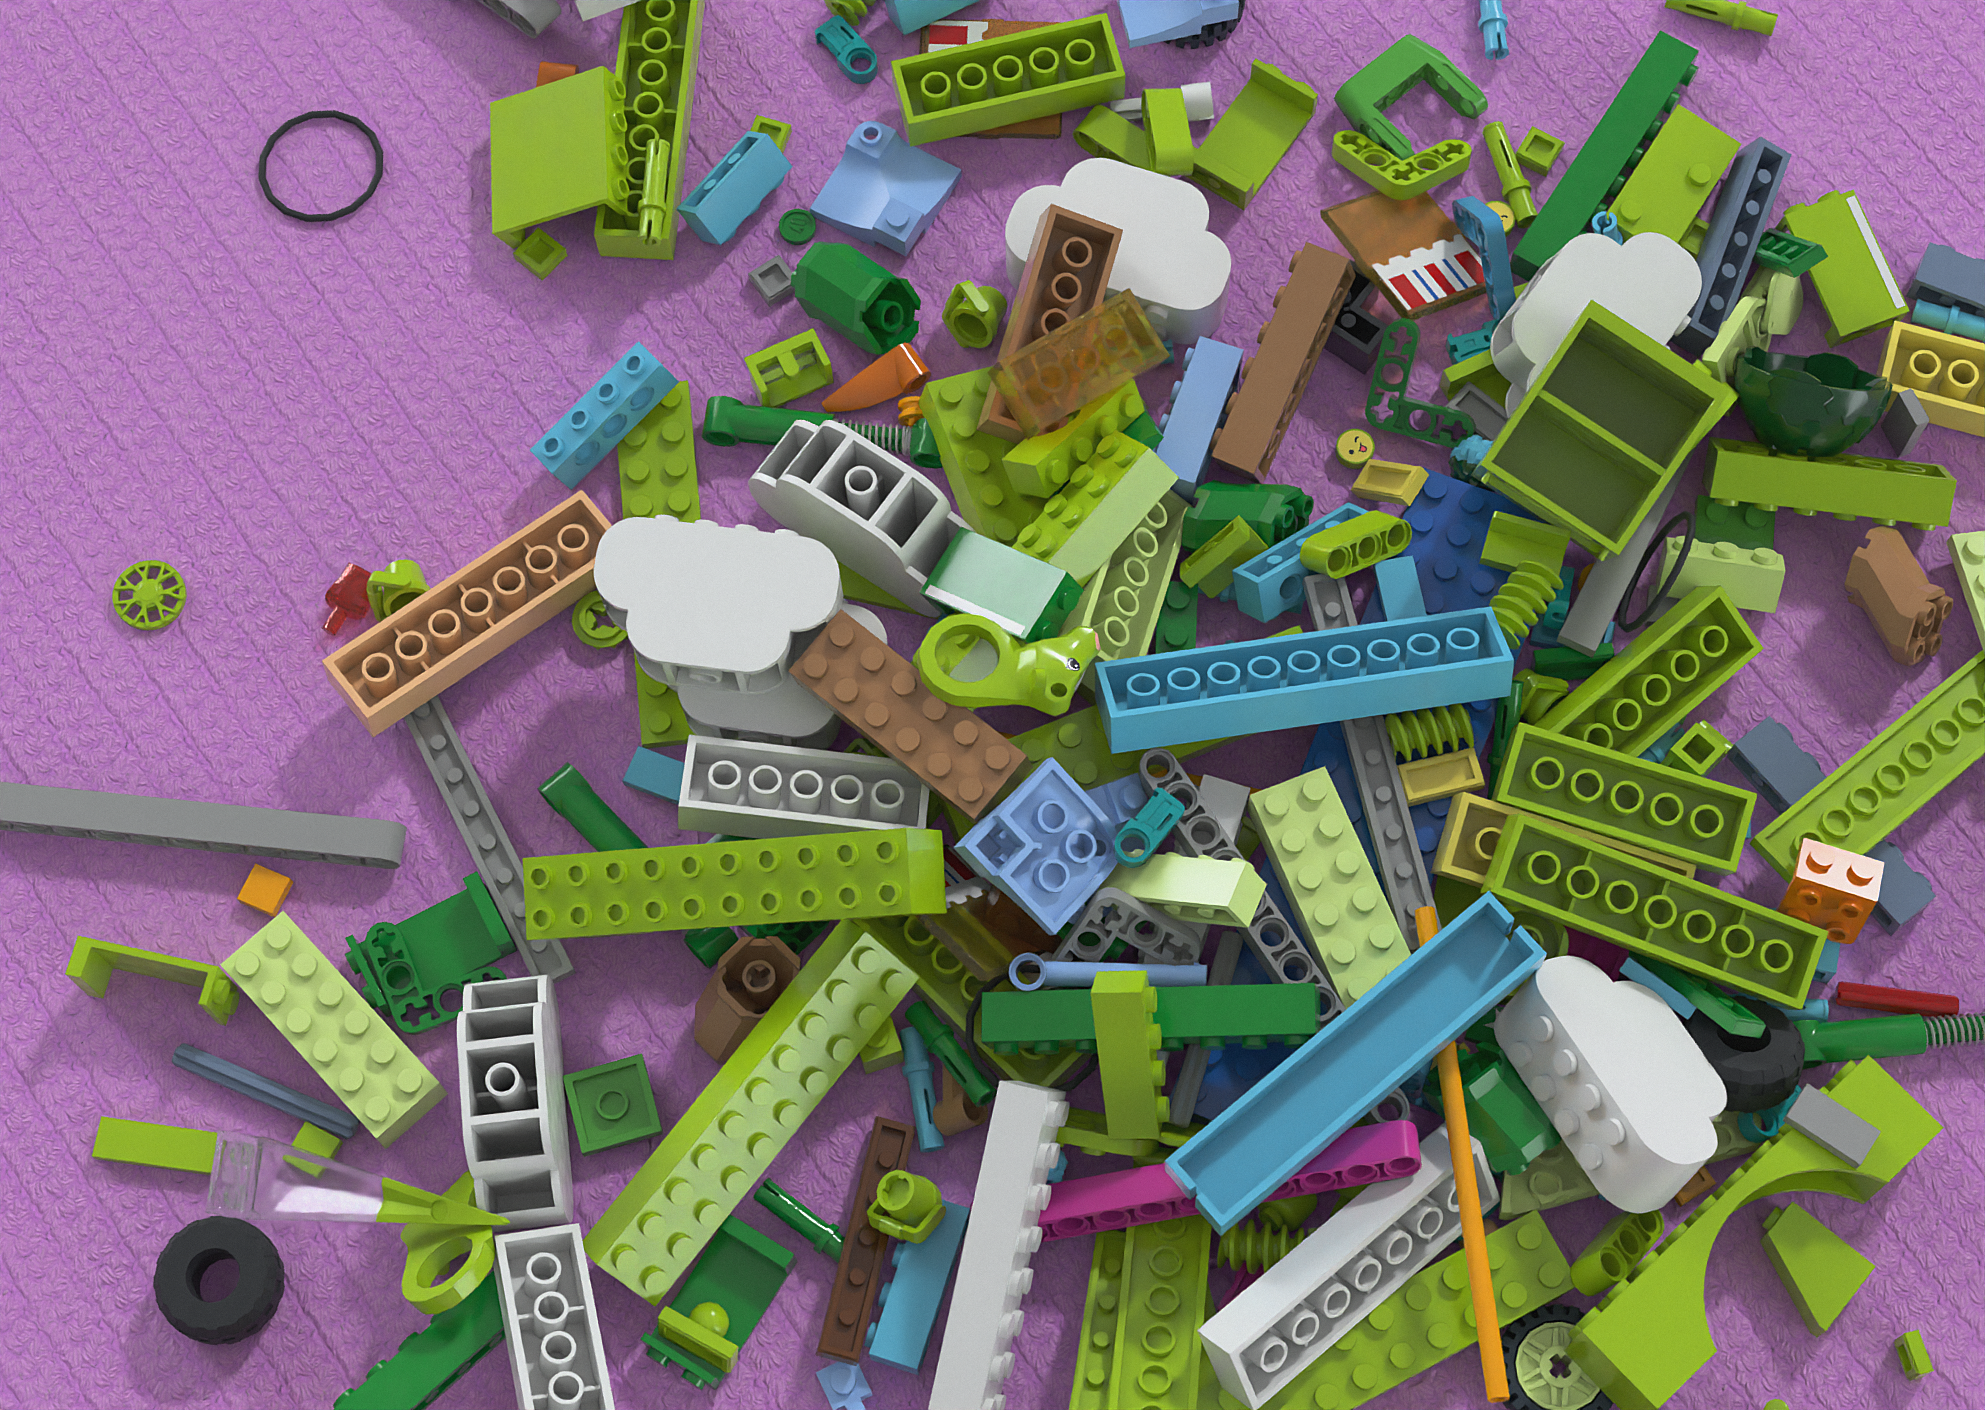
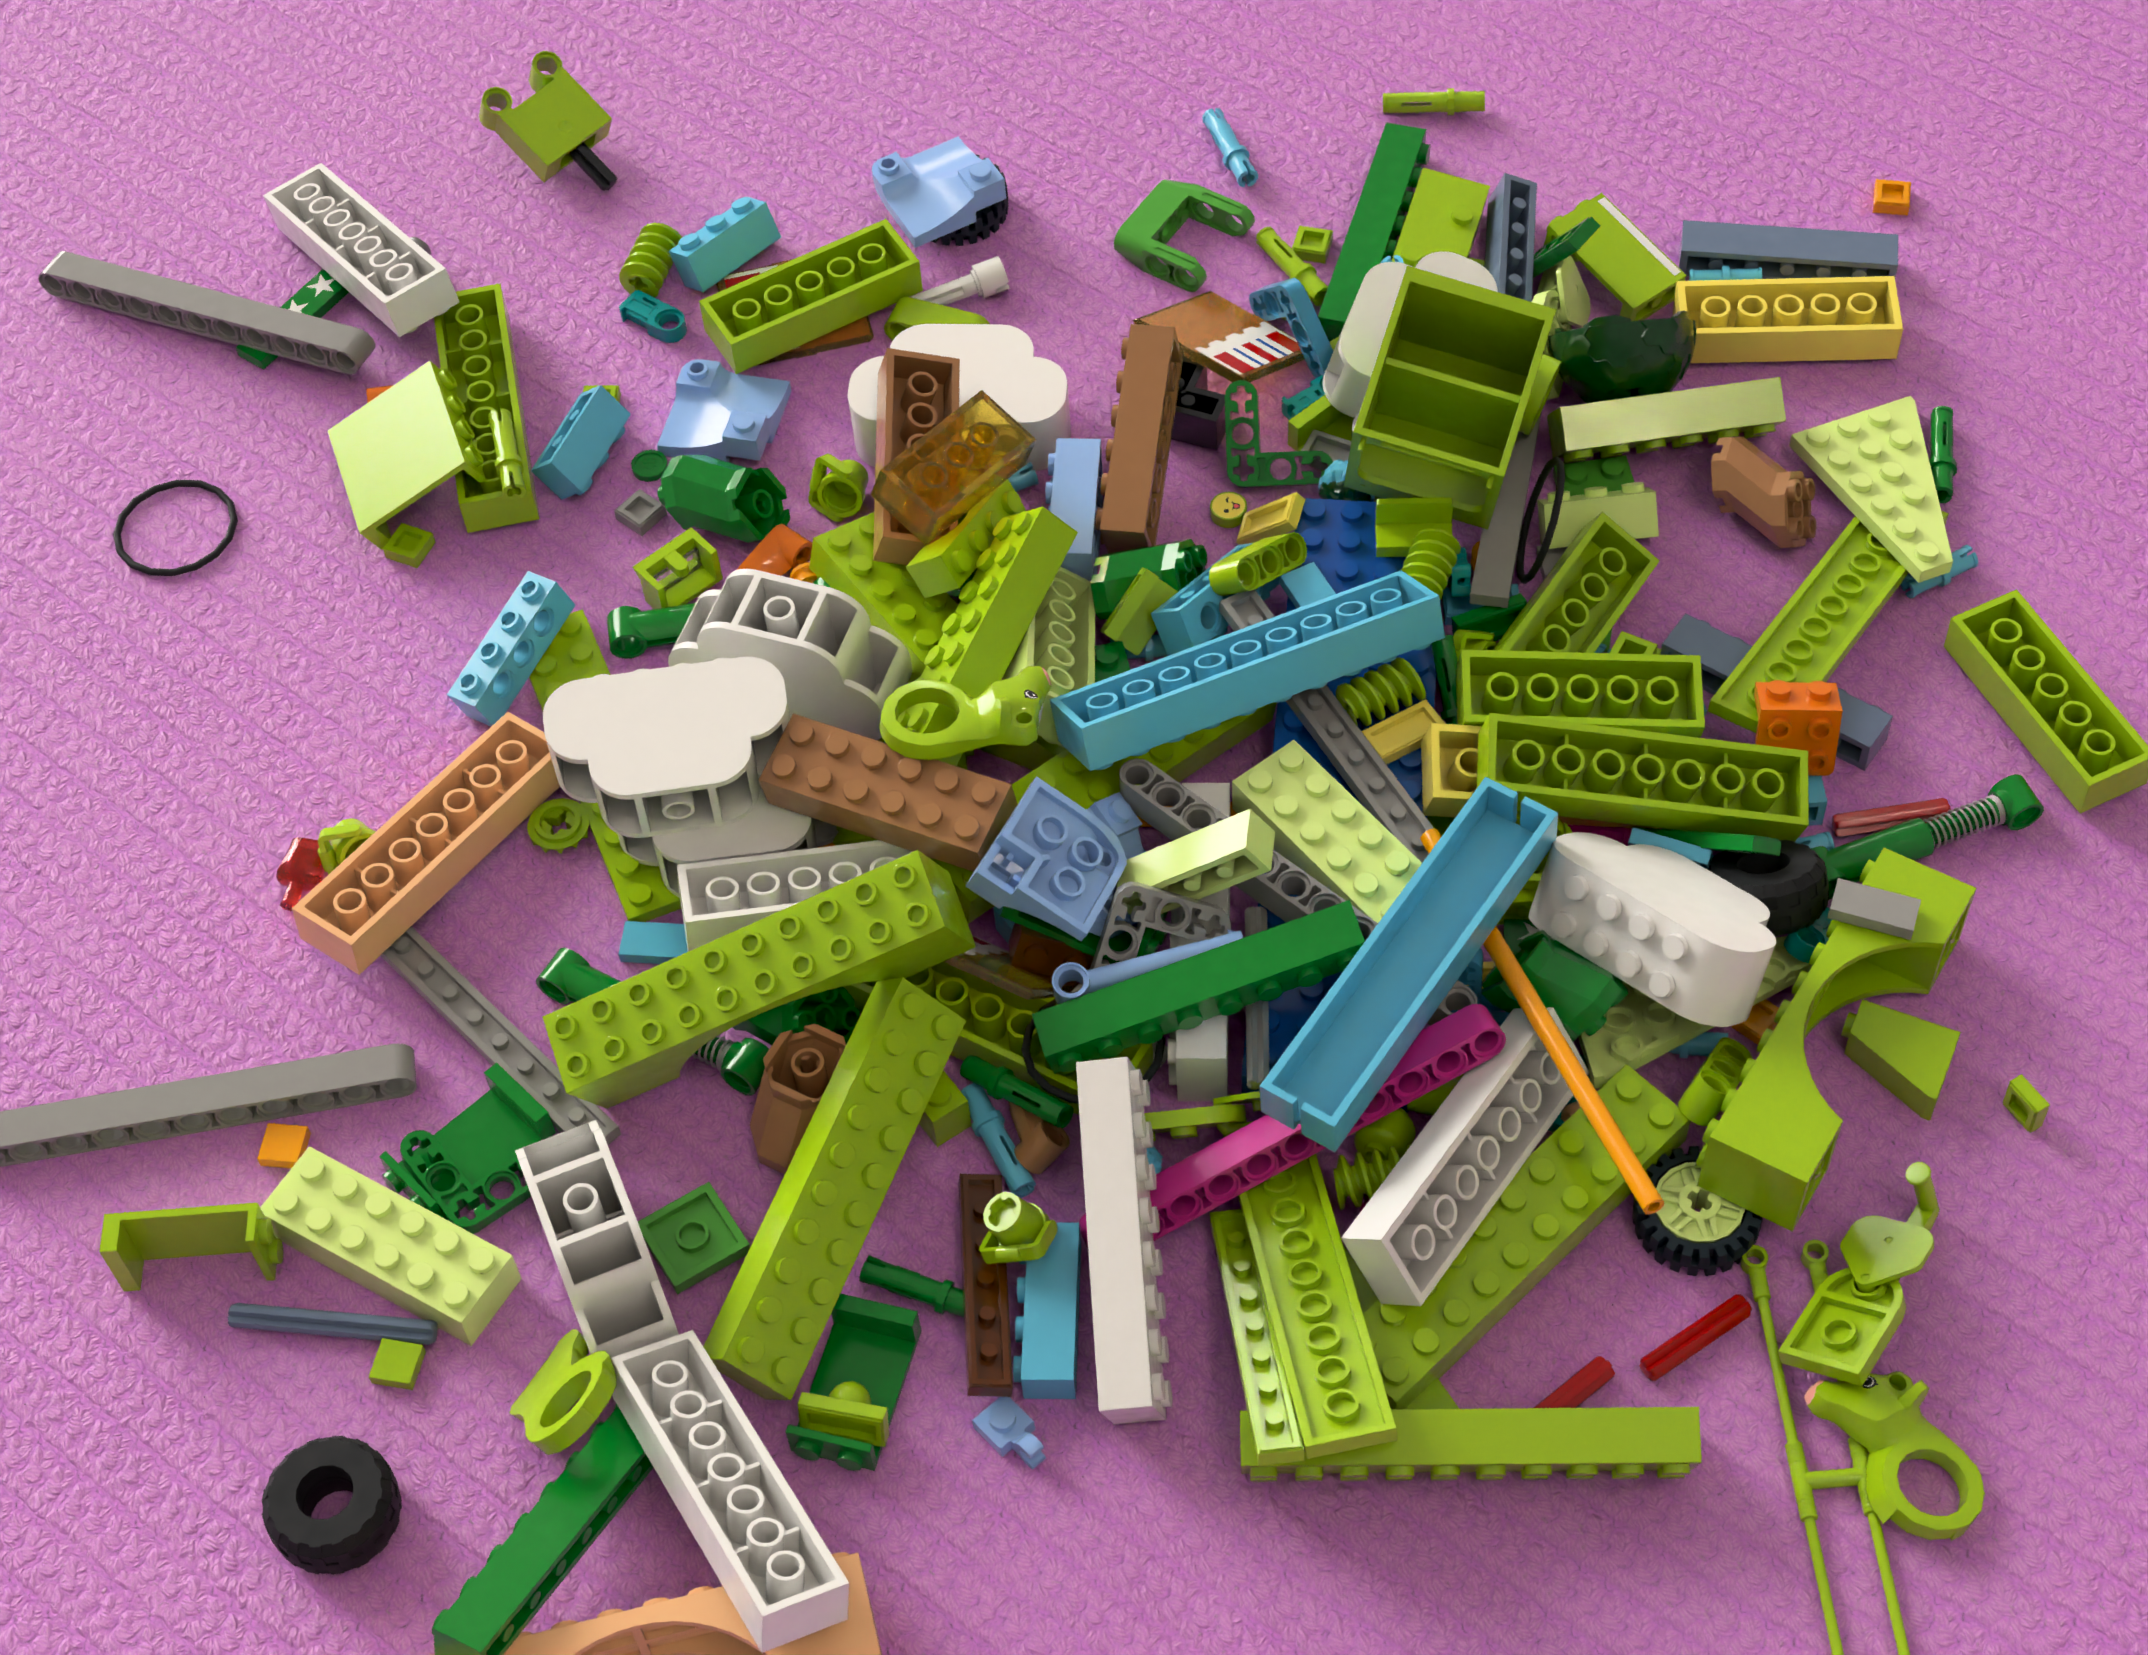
camera: 15 degrees left, 15 degrees down
(149, 595) = (97, 922): lime wheel -> none
(155, 1145) = (233, 1405): lime tile -> none
(278, 1181) = (390, 1390): clear plate -> none
(1002, 585) = (957, 655): panel -> none
(1129, 1054) = (1192, 1016): lime brick -> none
(1151, 827) = (1147, 821): teal piece -> none
(1167, 131) = (971, 295): lime beam -> none
(1253, 134) = (1052, 288): lime panel -> none
(1395, 177) = (1189, 286): lime beam -> none
(1904, 422) = (1715, 356): light grey tile -> none

